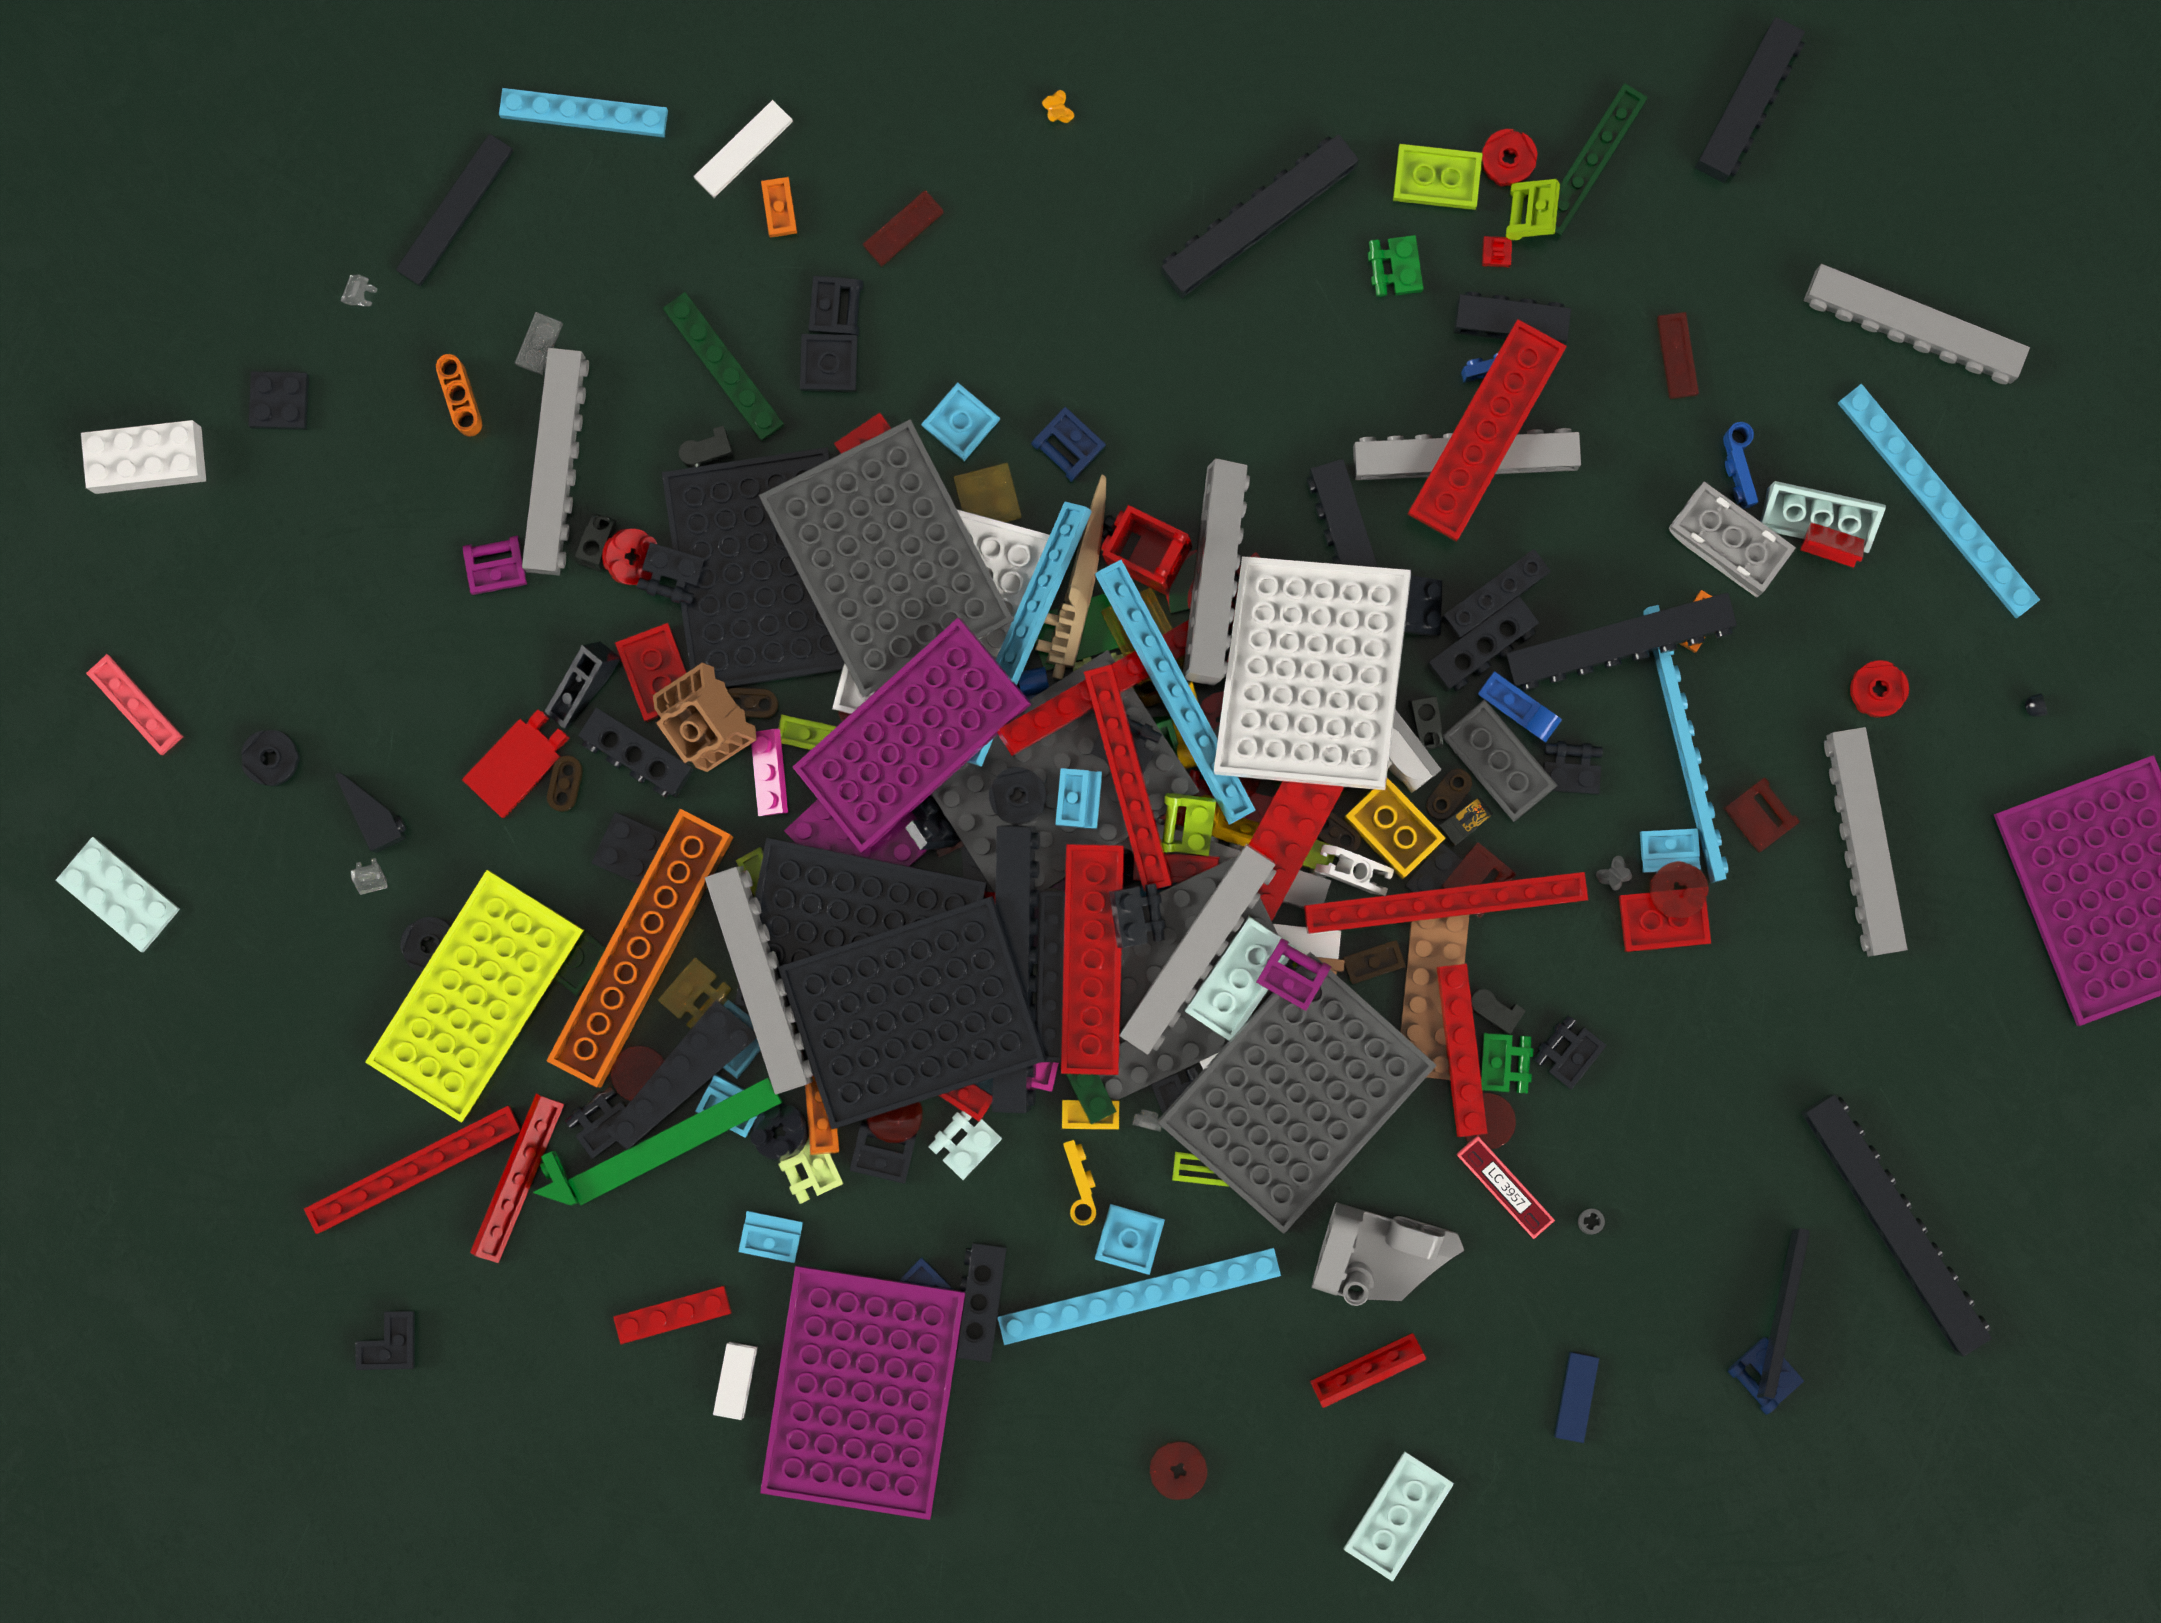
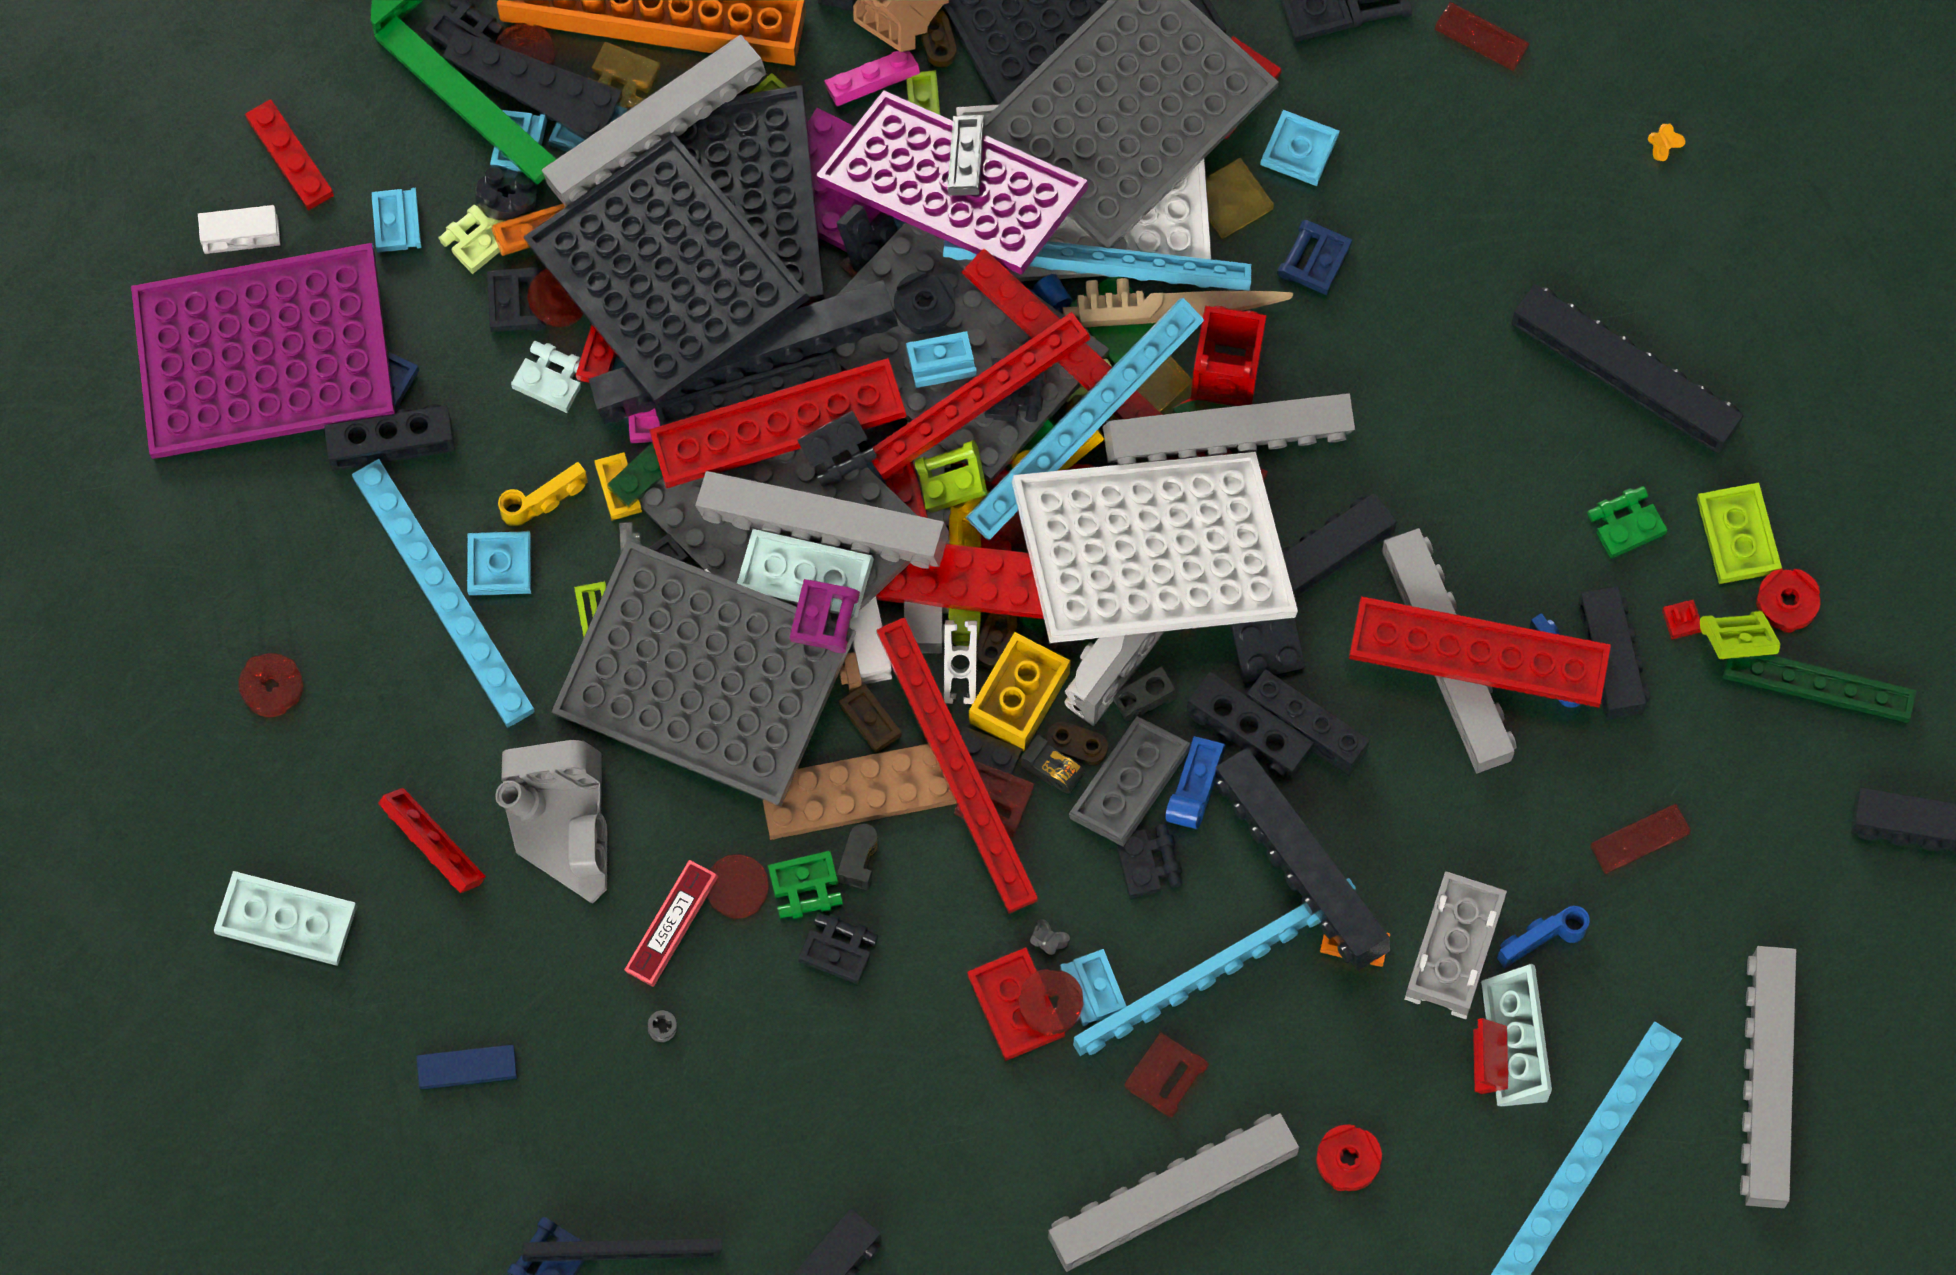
camera: 70 degrees right, 15 degrees down
(893, 715) = (966, 155): none -> tile
(1462, 1050) = (803, 831): red plate -> none

